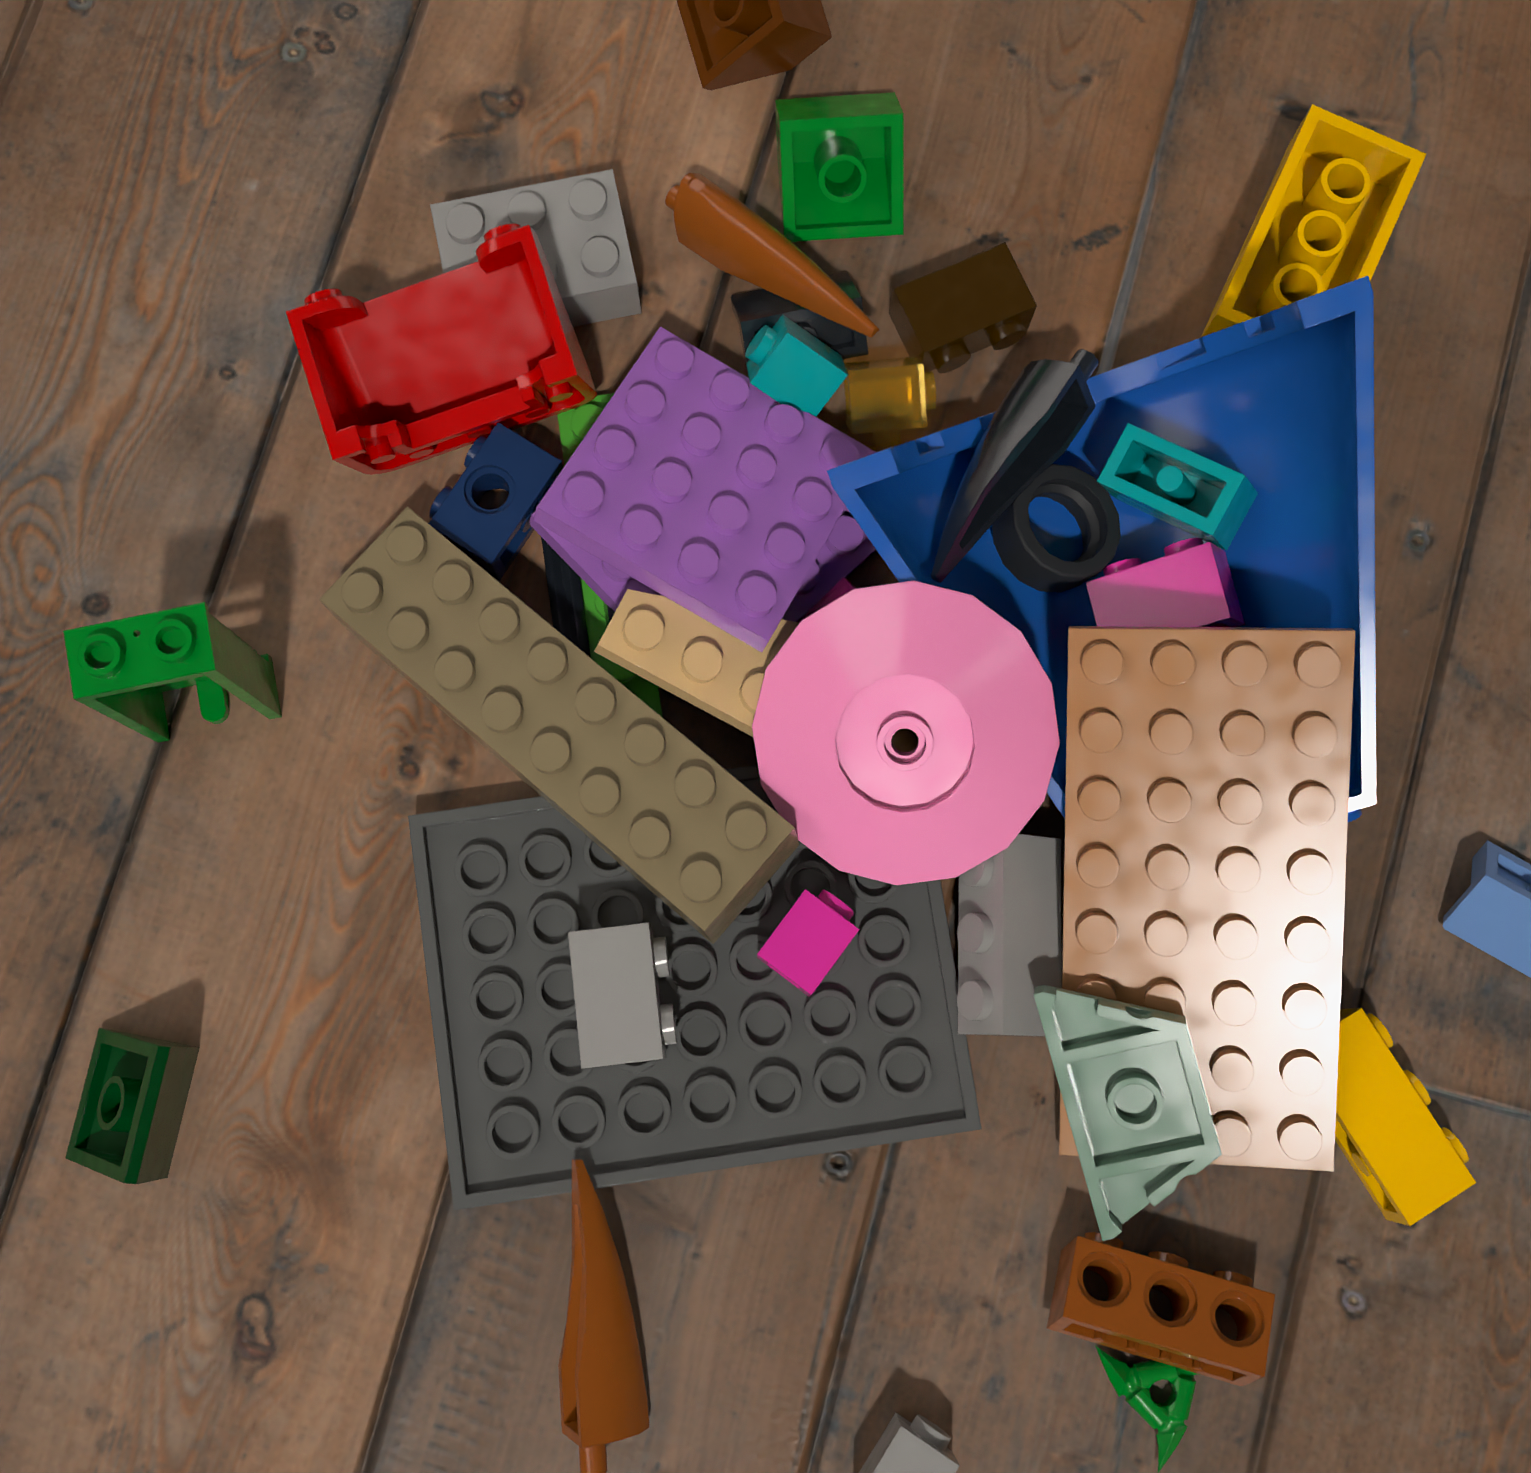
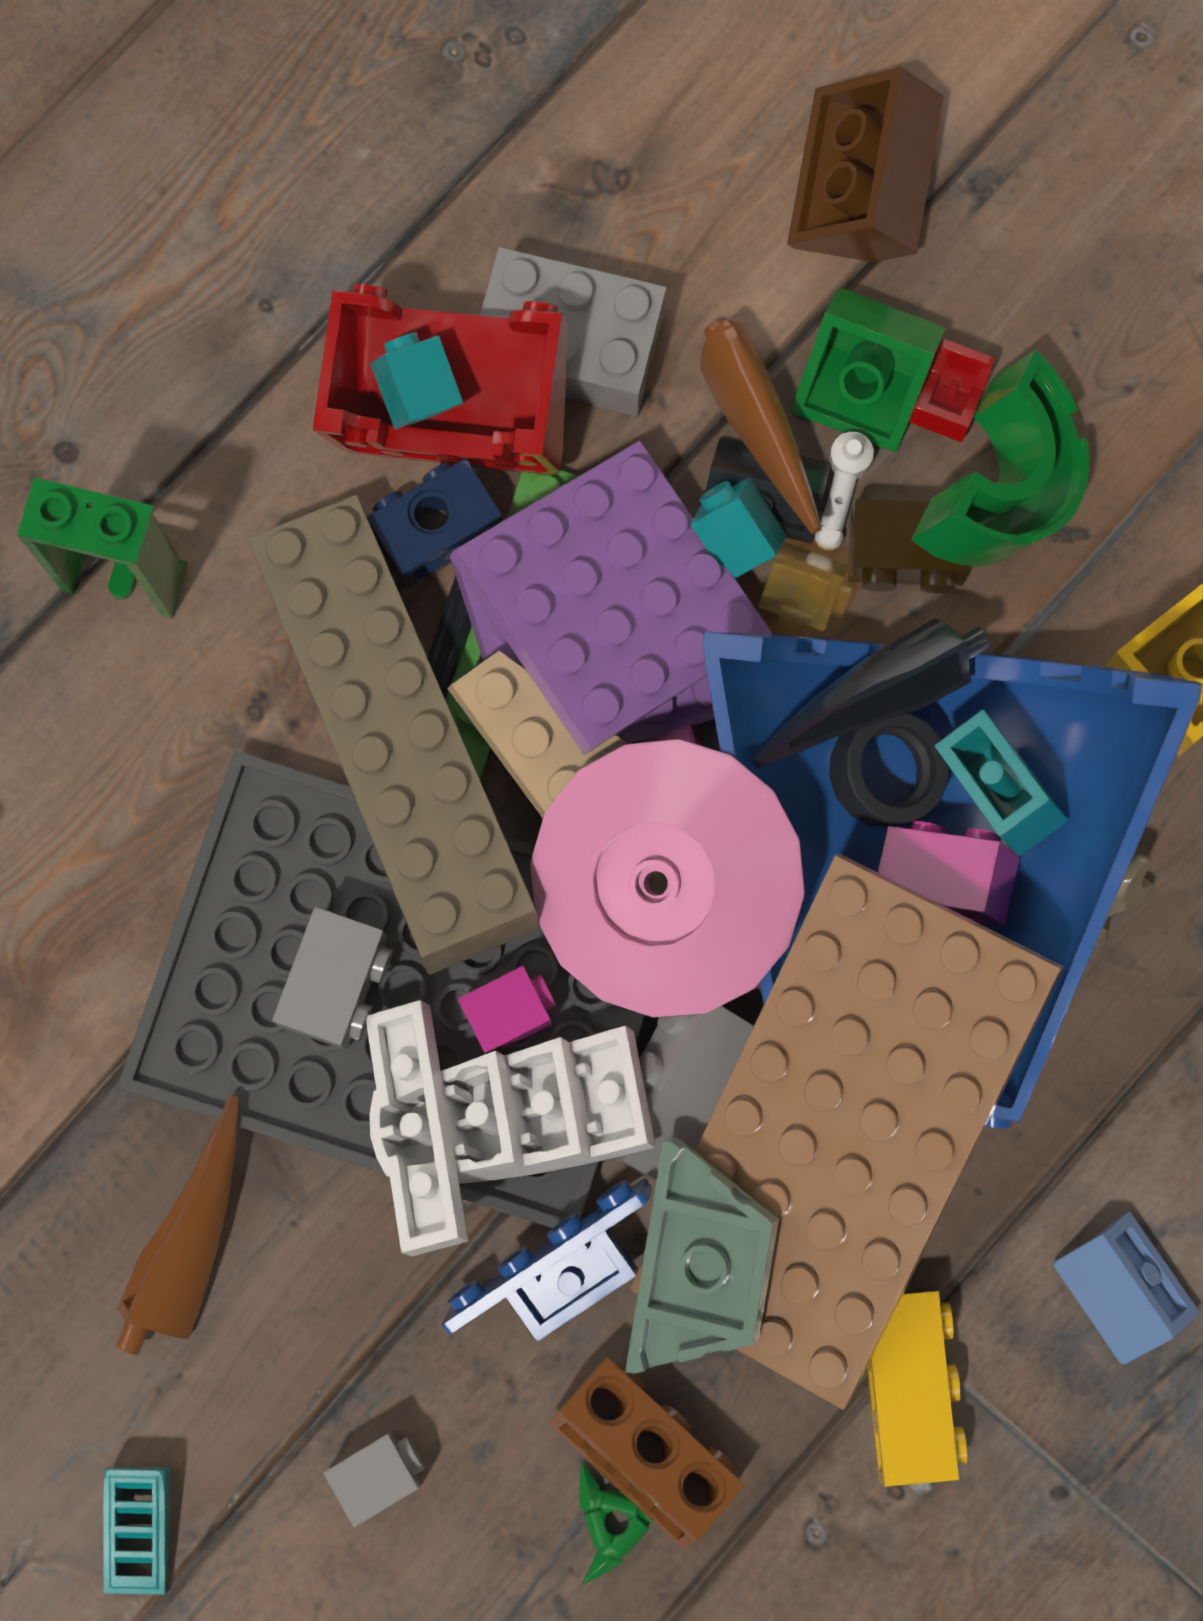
camera: 30 degrees right, 0 degrees up
(412, 364) = (415, 380): none -> teal brick
(848, 1055) = (493, 1116): none -> white slope
(864, 260) = (849, 460): none -> white piece
(932, 148) = (952, 390): none -> red bracket
(991, 1174) = (563, 1275): none -> bracket
(1051, 186) = (1039, 472): none -> green brick

